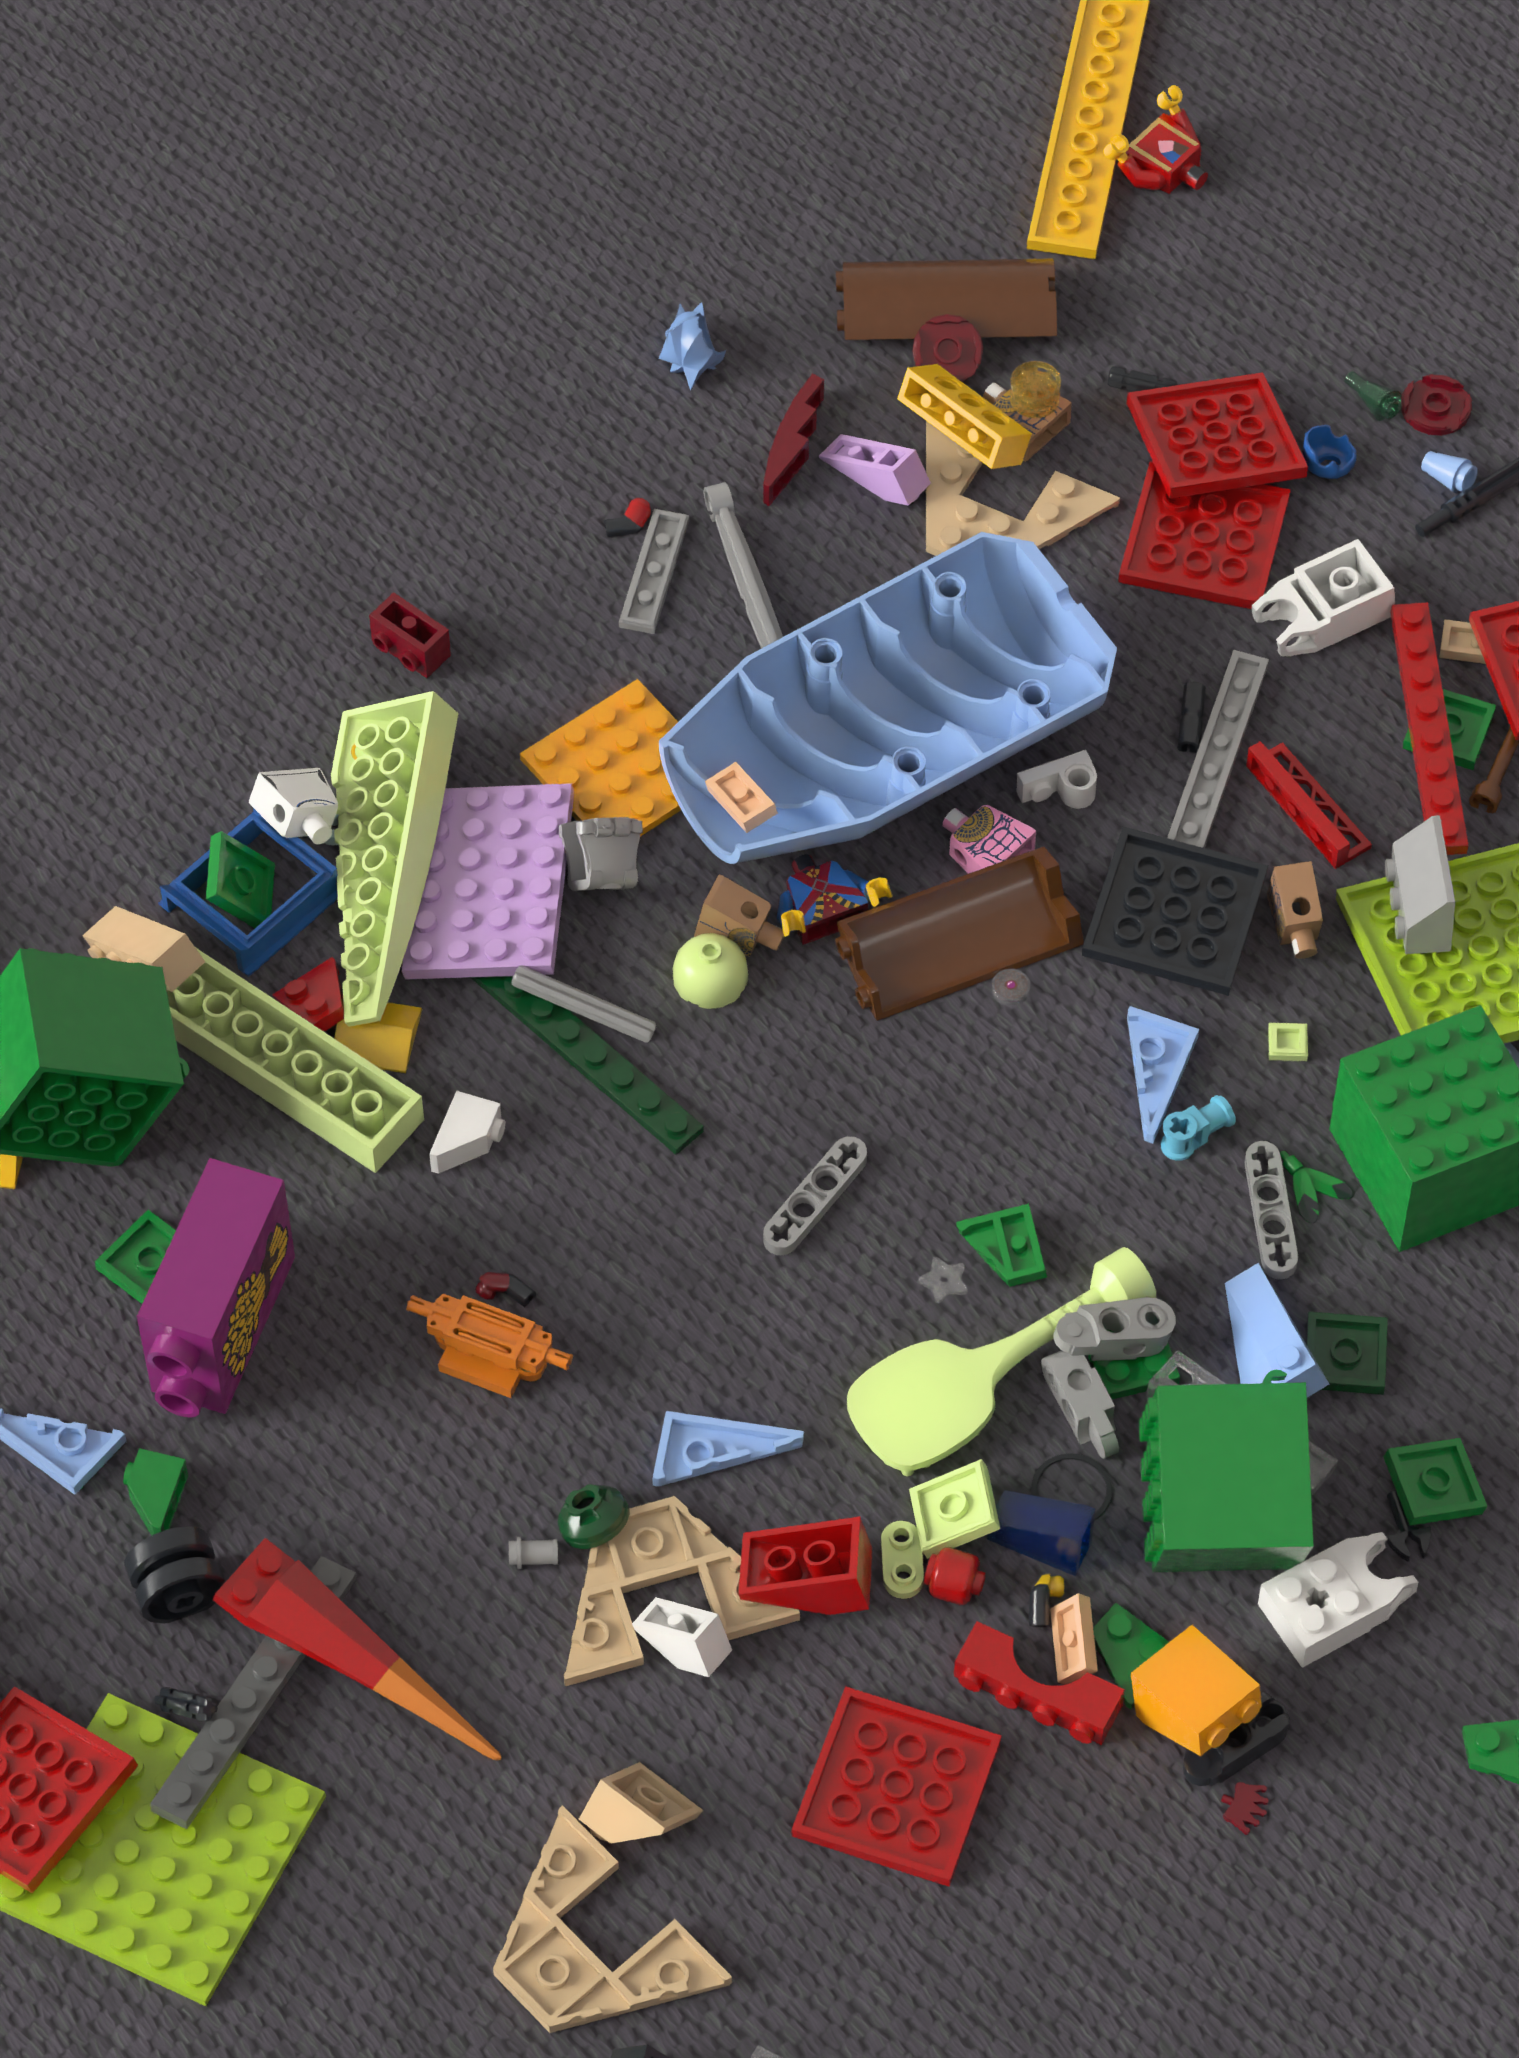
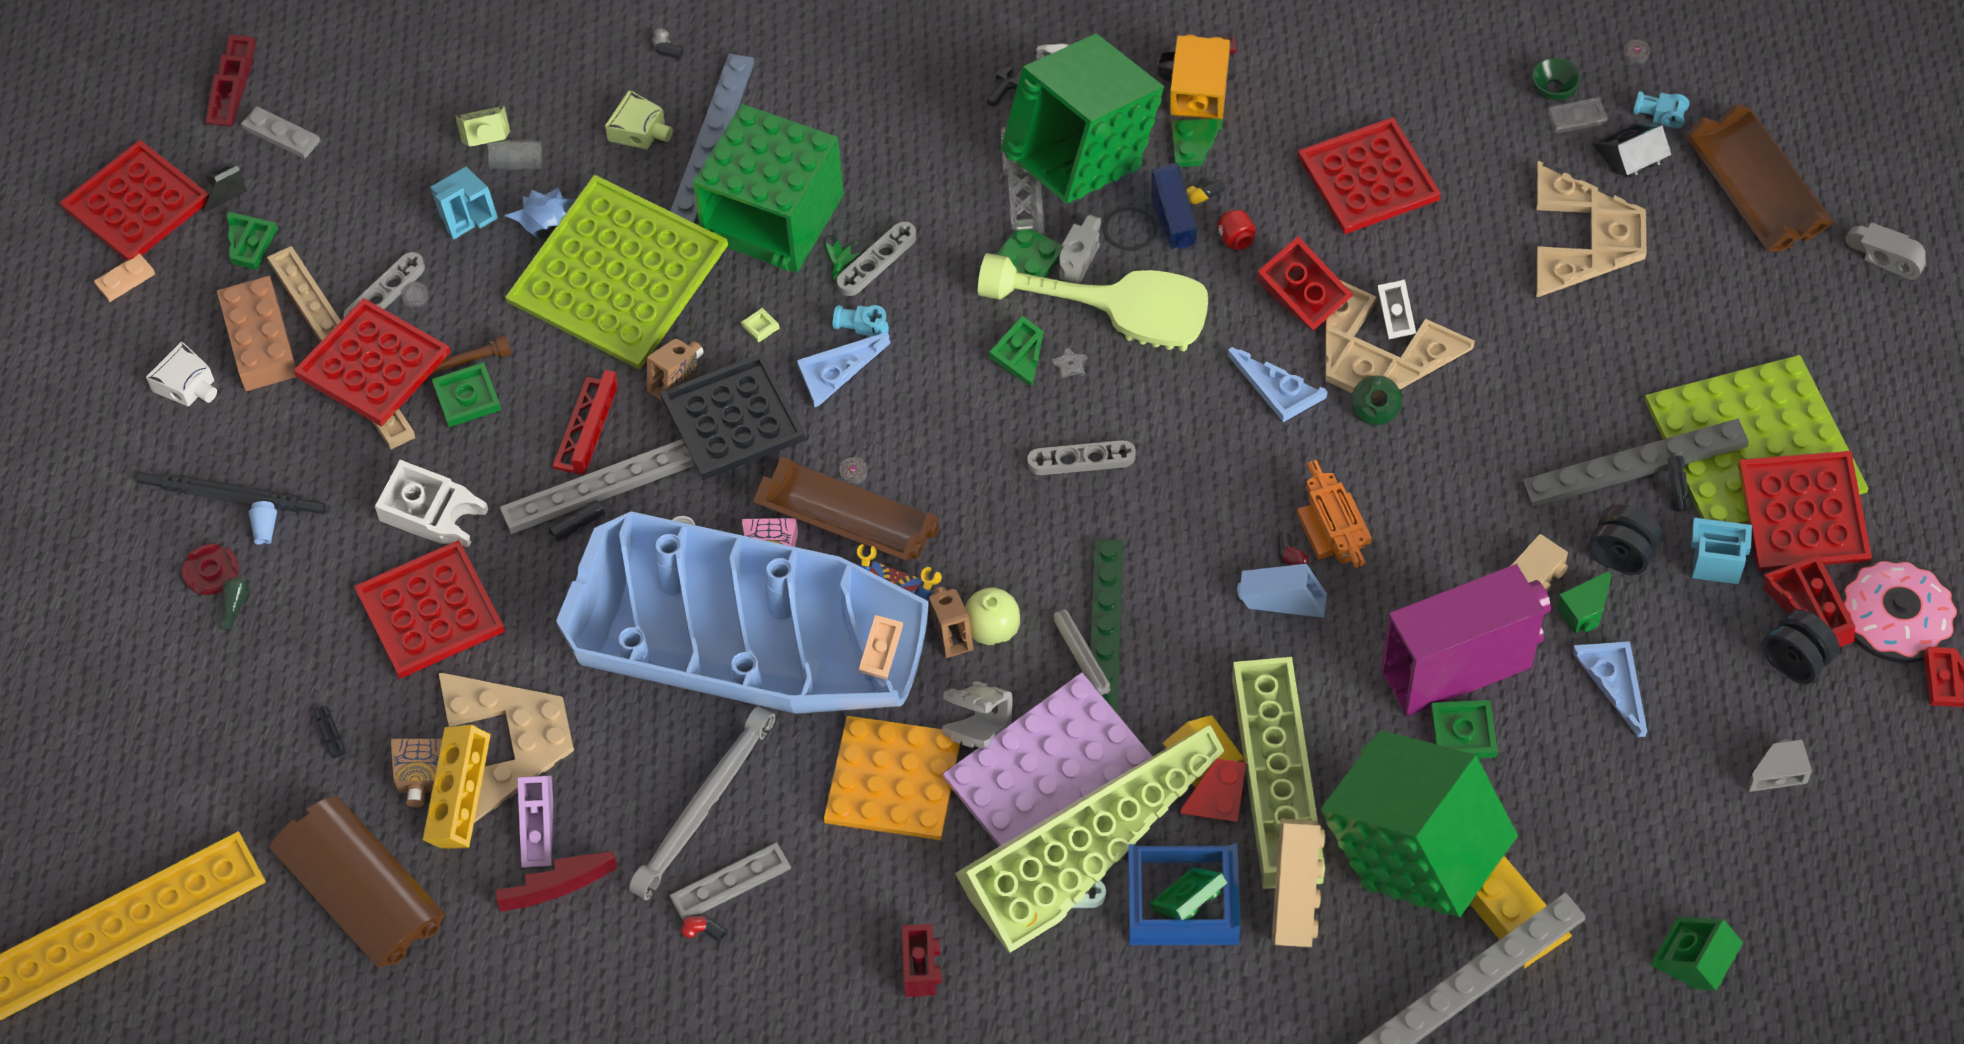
camera: 130 degrees left, 0 degrees up
(71, 1661) = (1719, 549): none -> medium azure plate
(242, 1481) = (1543, 561): none -> tan brick
(296, 803) = (1108, 898): white torso -> none
(298, 1610) = (1579, 472): red plate -> none
(459, 1228) = (1283, 590): none -> light blue slope
(466, 1131) = (1222, 643): white slope -> none
(533, 1552) = (1428, 418): light grey pin -> none
(636, 1806) = (1502, 258): tan slope -> none
(690, 345) = (532, 998): medium blue hair -> none
(902, 1558) = (1248, 263): yellowish green plate -> none
(949, 343) = (402, 848): dark red tile -> none
(954, 1508) = (1202, 252): yellowish green tile -> none
(1034, 391) = (404, 755): clear yellow wheel -> none
(1073, 1639) = (1215, 161): light nougat plate -> none
(1082, 1707) = (1246, 132): red arch -> none
(1139, 1326) = (1030, 249): light grey piece -> none
(1163, 152) = (113, 856): red torso -> none
(1216, 435) = (346, 649): red plate -> none
(1267, 1335) = (967, 195): light blue wedge -> none
(1323, 445) = (309, 579): blue hair -> none
(1349, 1350) = (931, 169): dark green plate -> none
(1422, 889) = (611, 302): light grey slope -> none
(1428, 722) = (481, 393): red plate -> none
(1435, 1481) = (969, 84): green plate -> none

